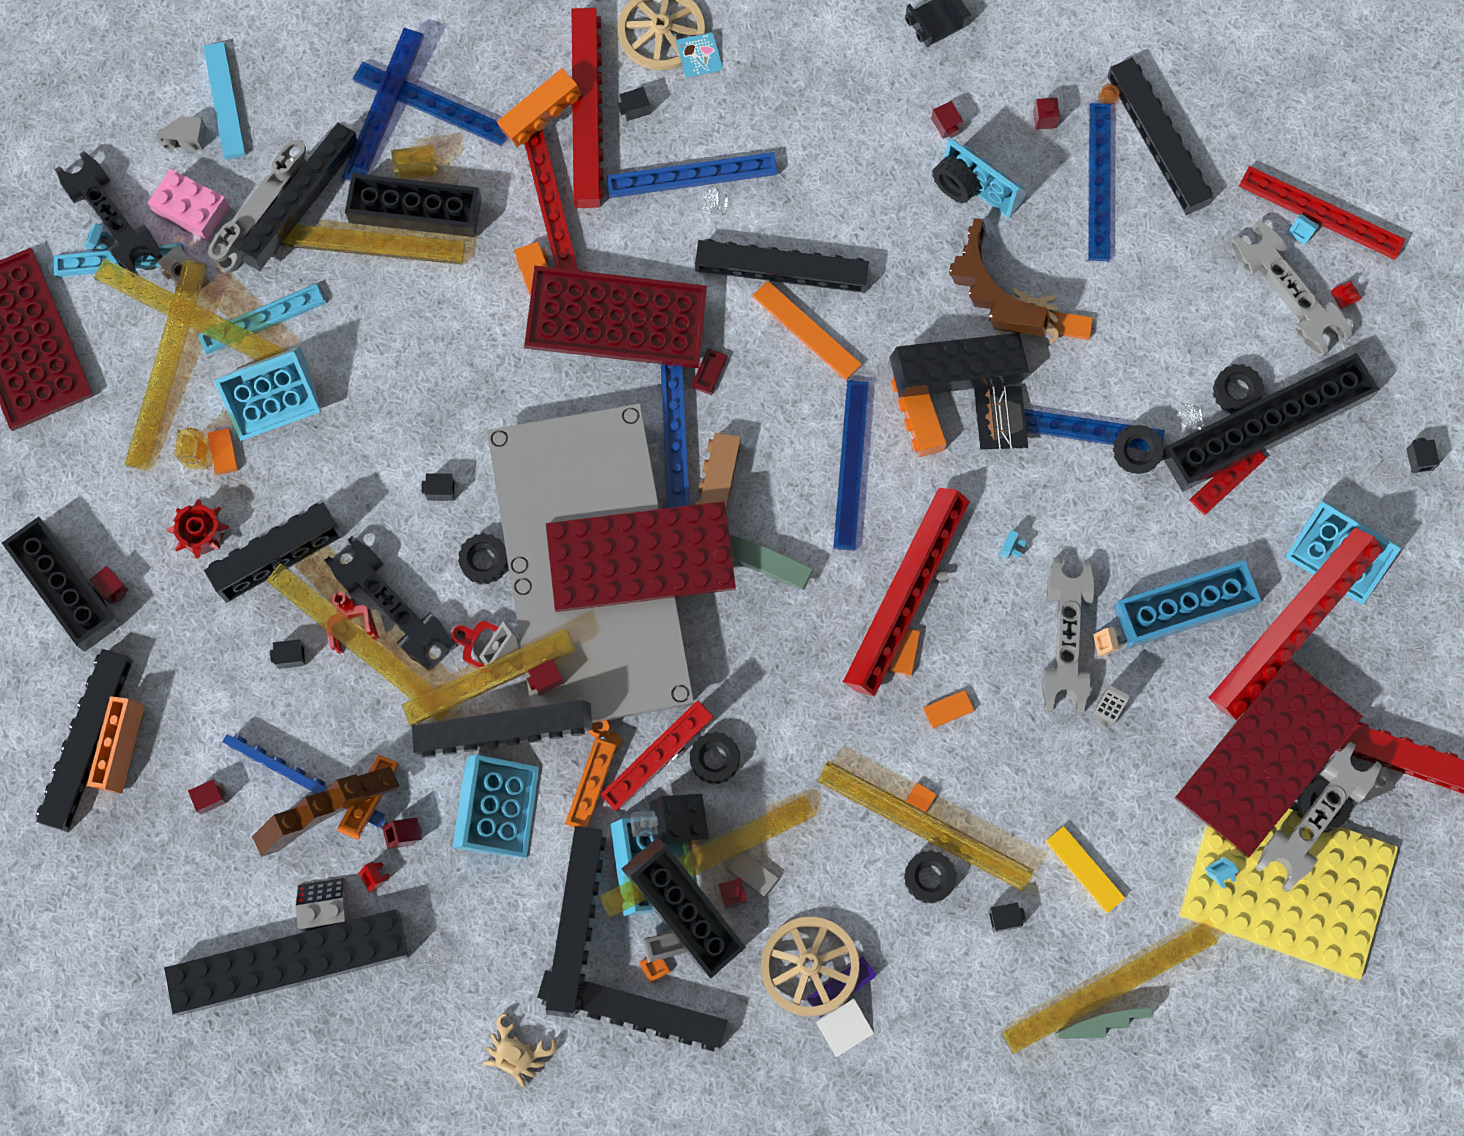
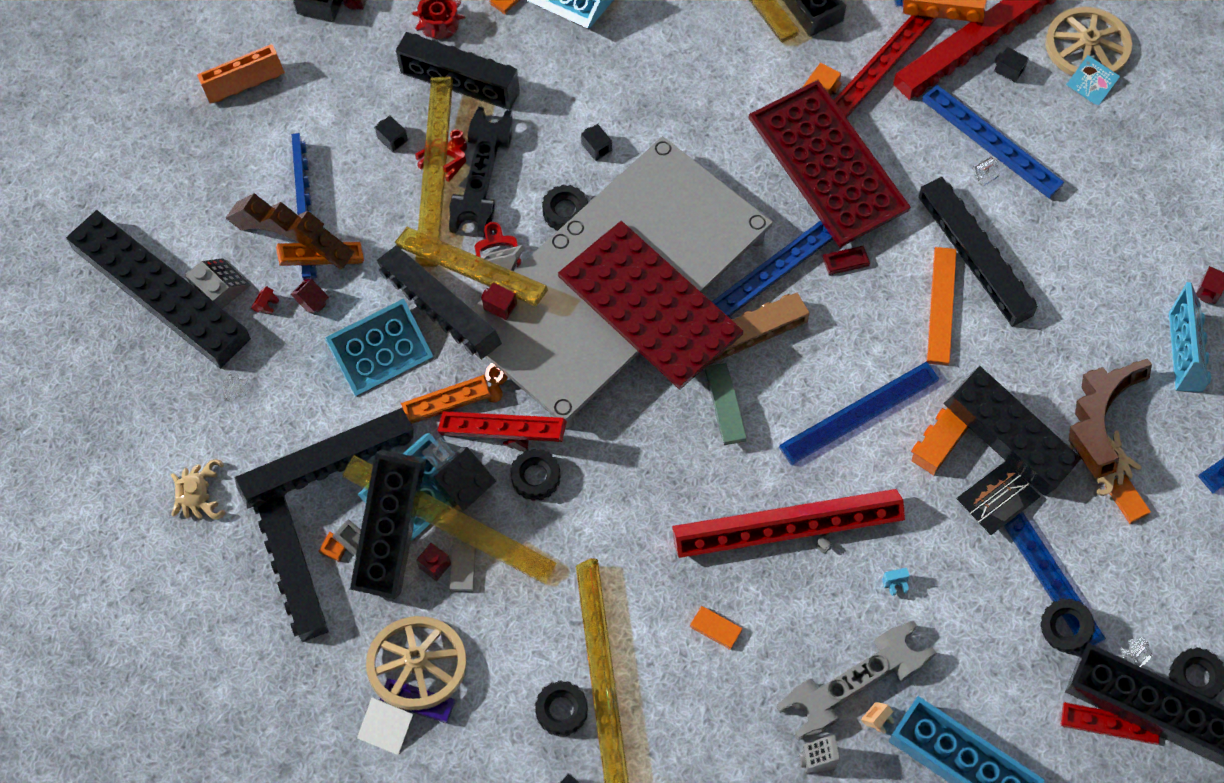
camera: 55 degrees right, 10 degrees down
(79, 749) = (184, 67): black brick -> none
(208, 796) = (245, 155): dark red brick -> none
(905, 655) = (736, 560): orange tile -> none
(921, 797) = (623, 656): orange tile -> none
(955, 179) = (1166, 322): black tyre -> none

